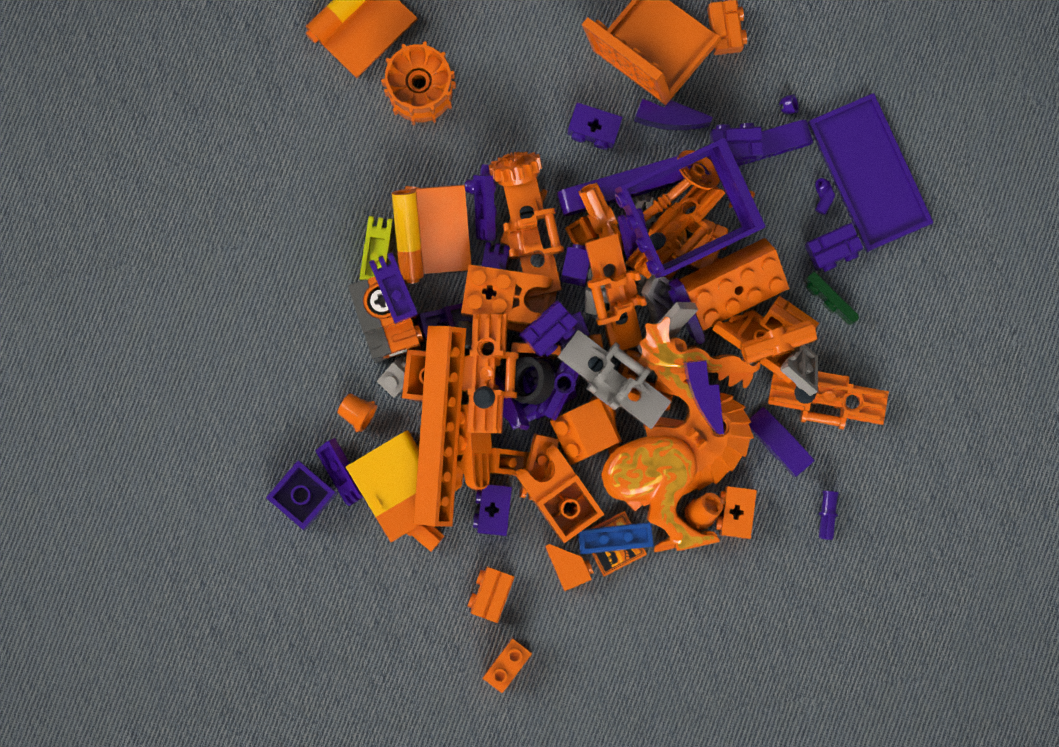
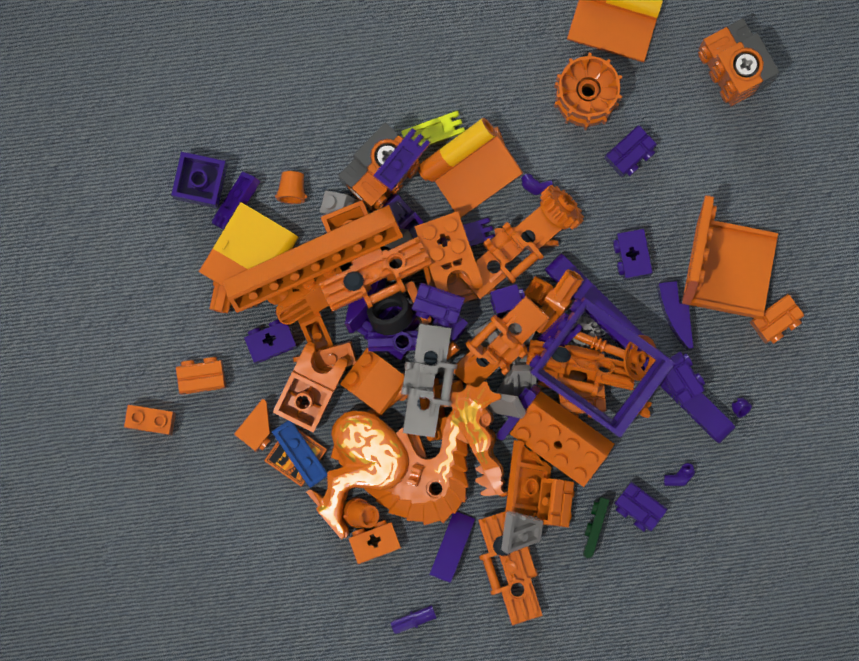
camera: 70 degrees right, 0 degrees up
(484, 207) = (514, 202): dark purple hinge -> none
(496, 76) = (630, 152): none -> dark purple brick
(705, 394) = (454, 460): dark purple slope -> none
(778, 342) = (531, 499): orange piece -> none
(870, 172) = (721, 505): dark purple tile -> none

